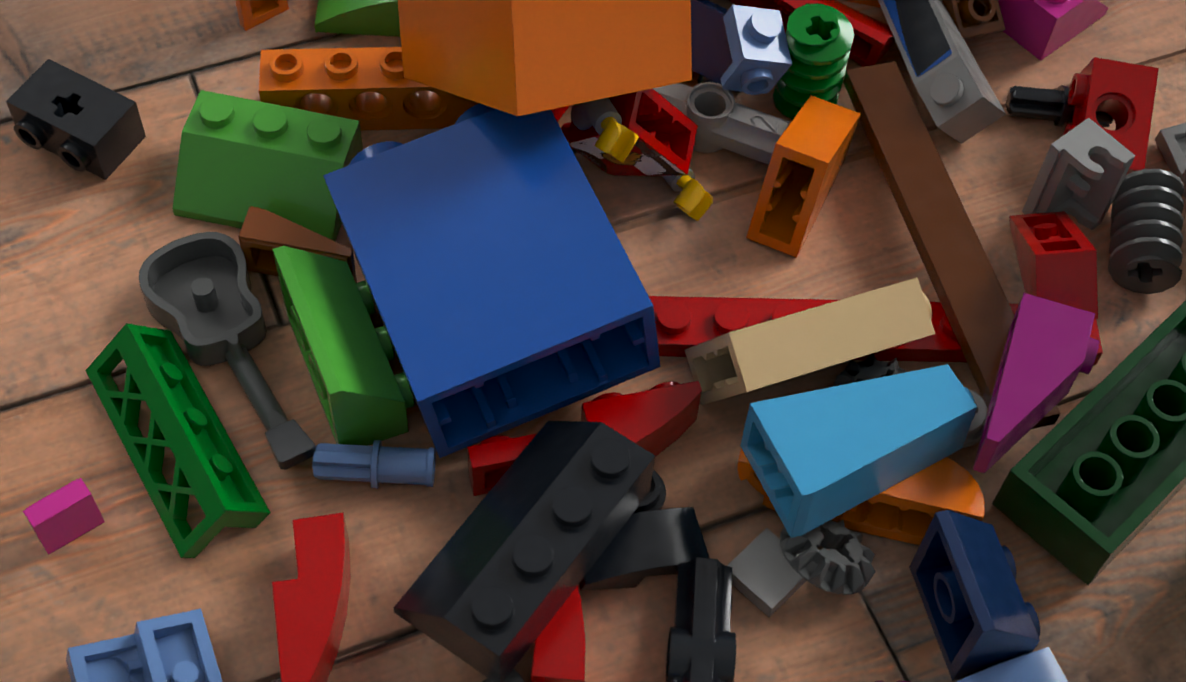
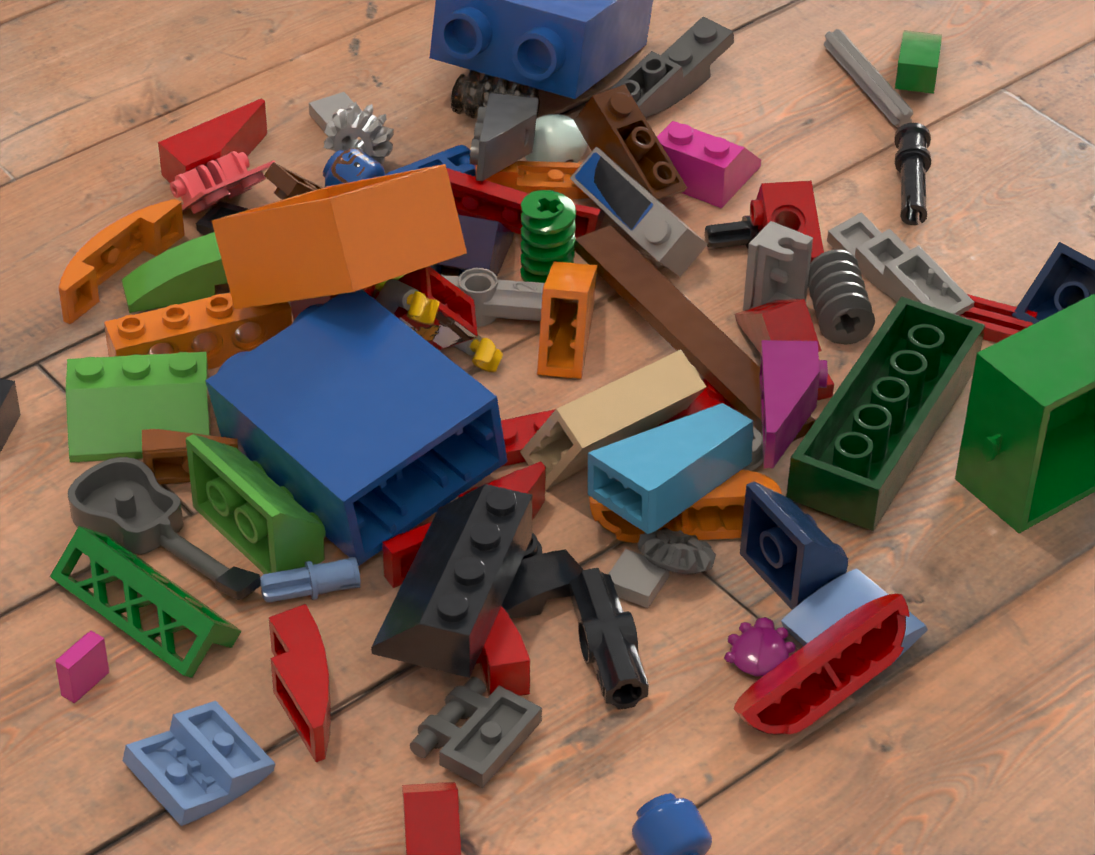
camera: 15 degrees left, 15 degrees down
(756, 49) = (504, 233): medium blue bracket -> none

